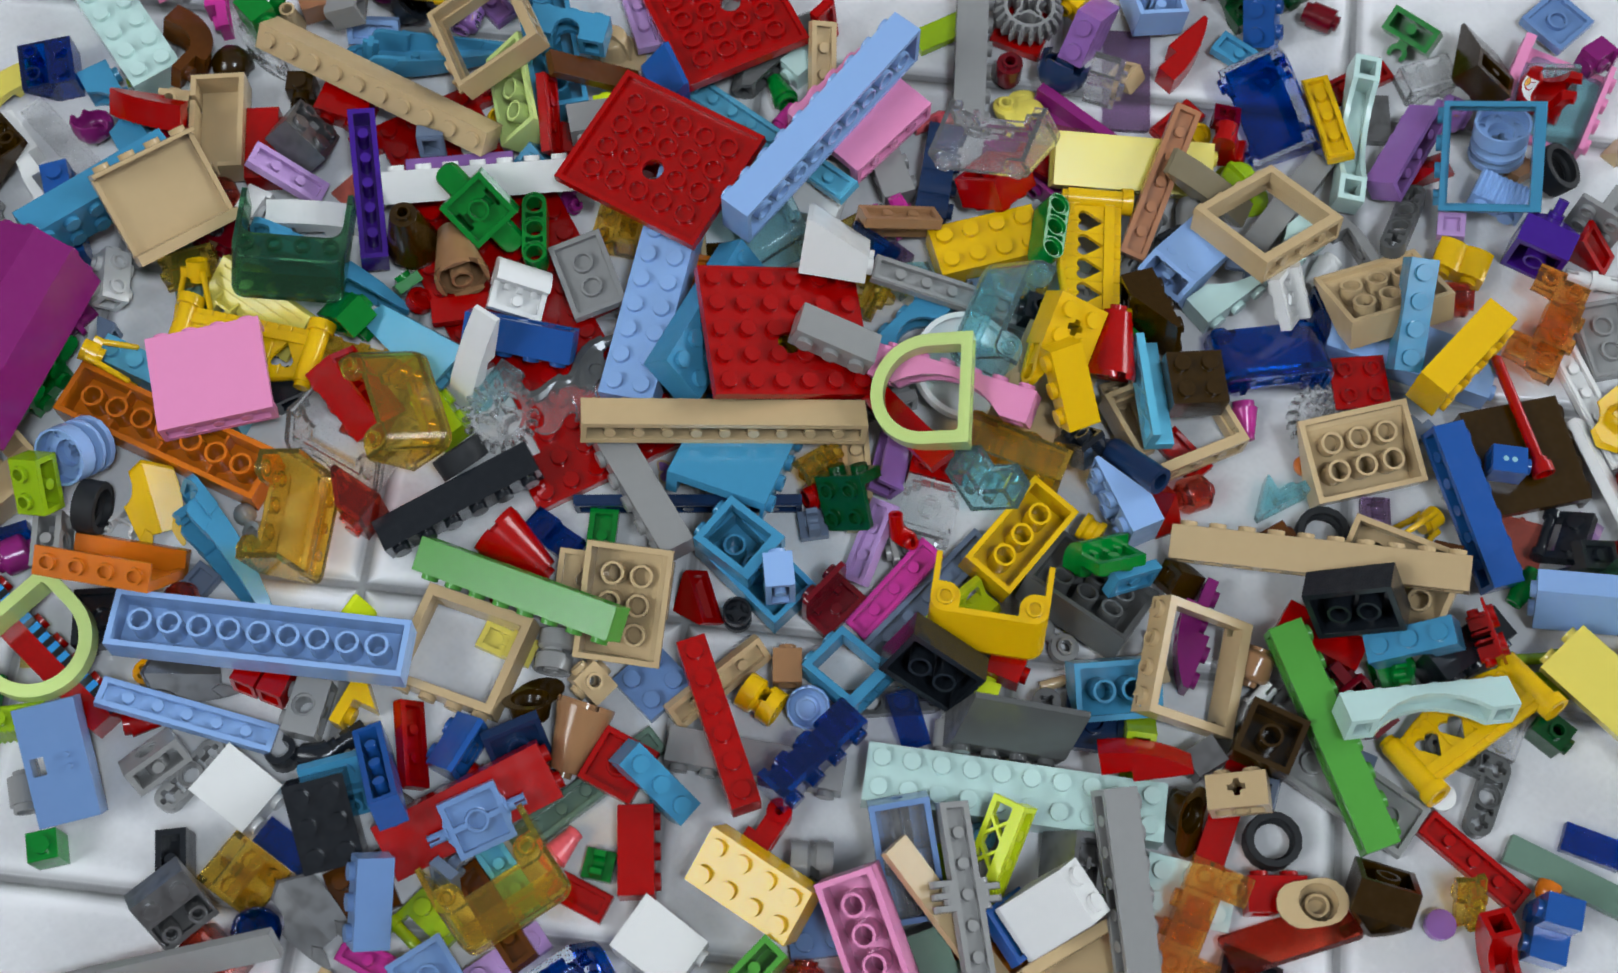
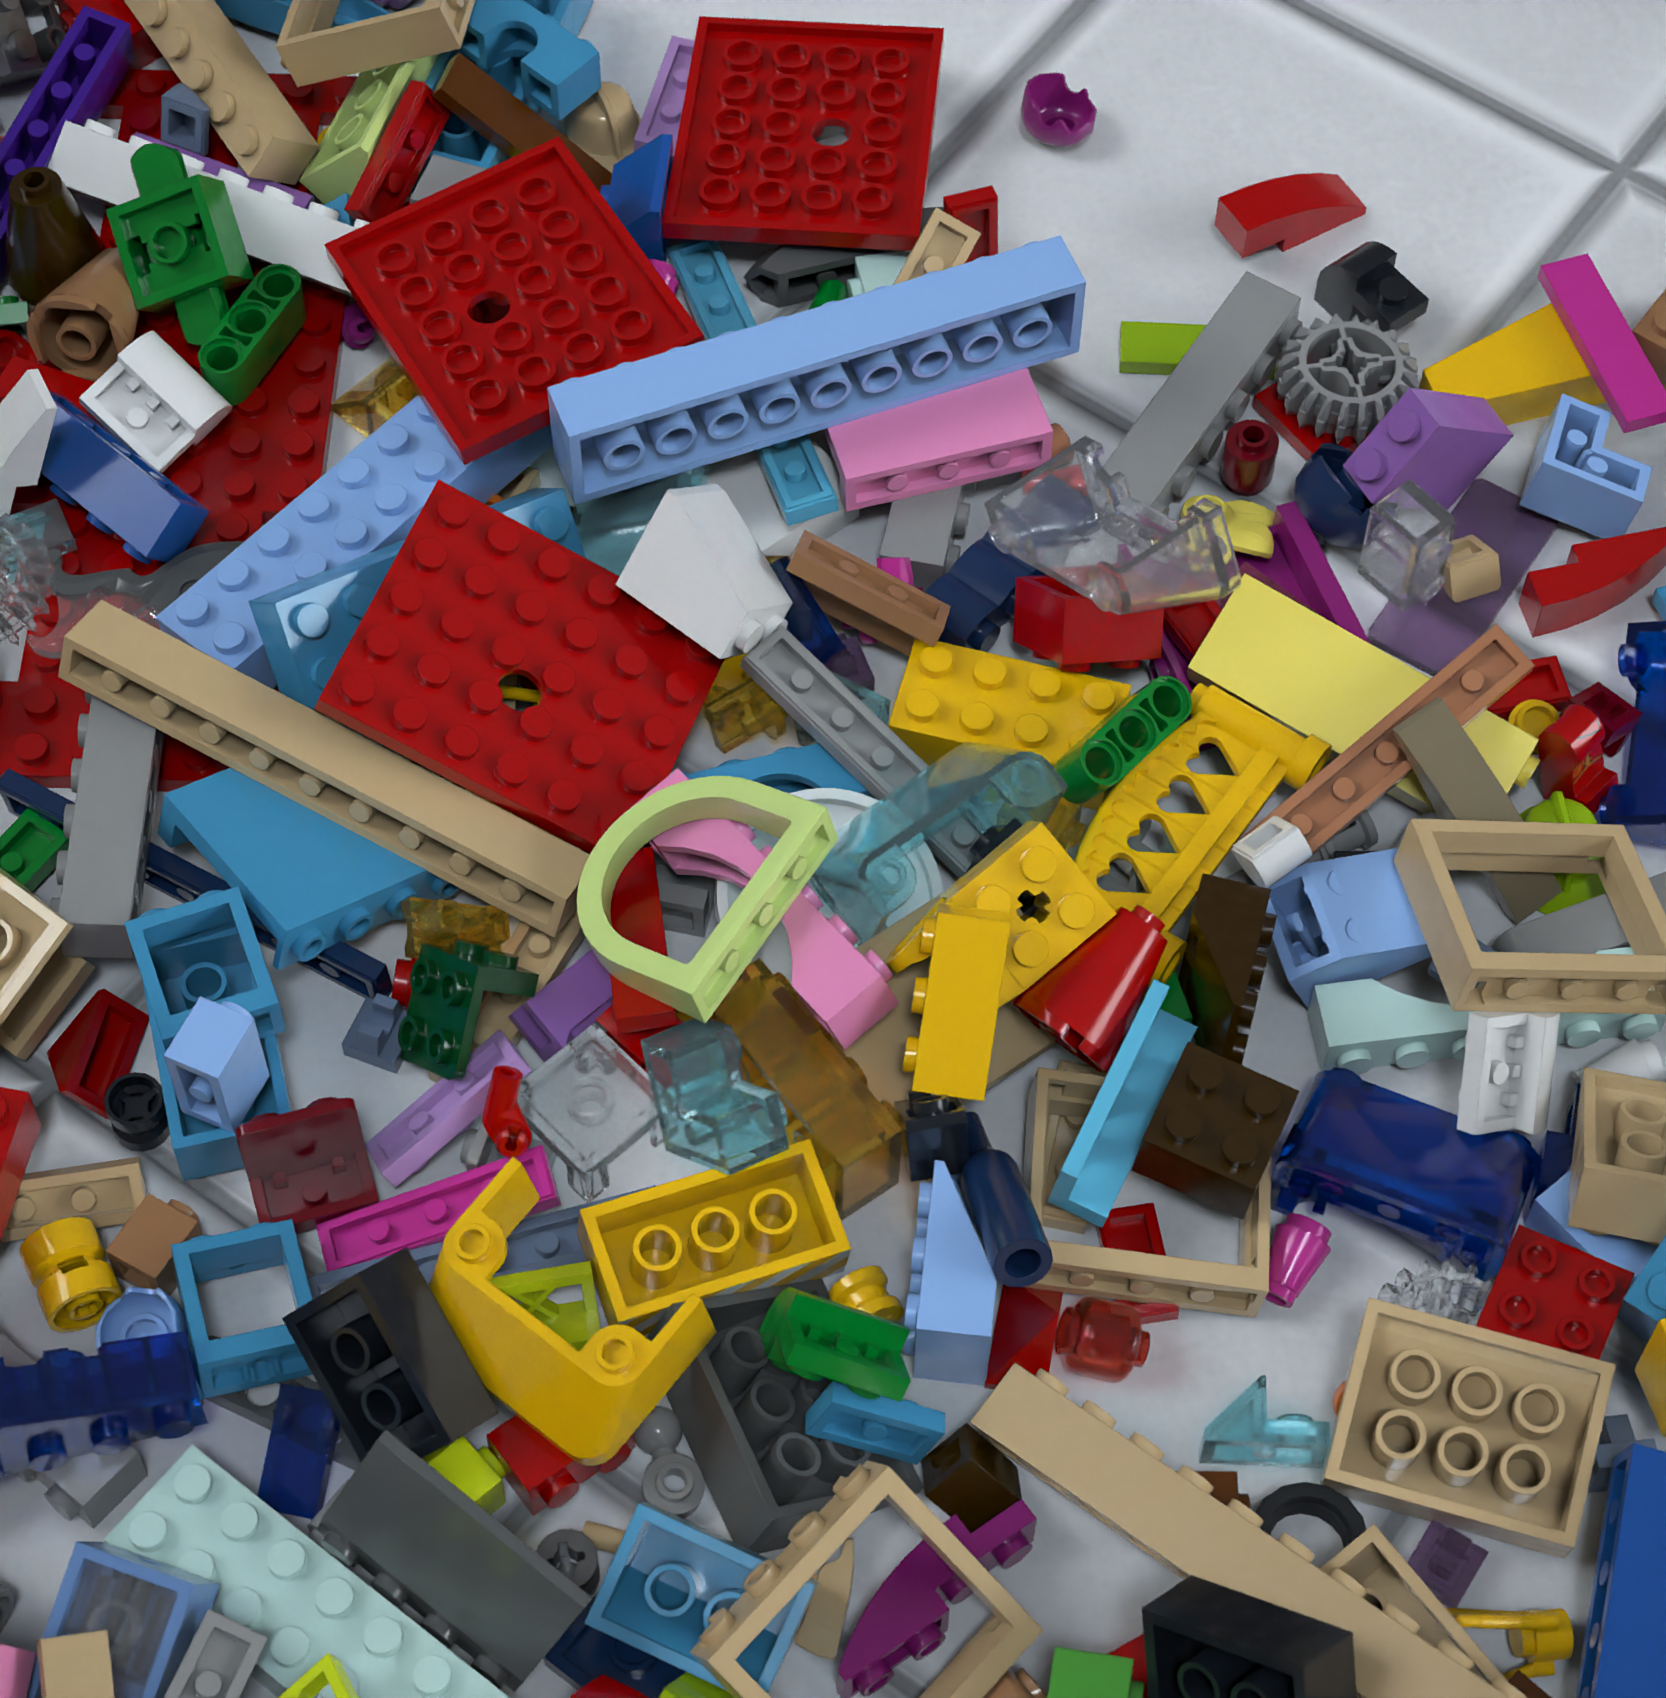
camera: 30 degrees right, 10 degrees down
(587, 275) = (284, 434): light grey plate -> none
(834, 338) = (598, 719): light grey brick -> none
(1139, 249) = (1271, 851): none -> white brick

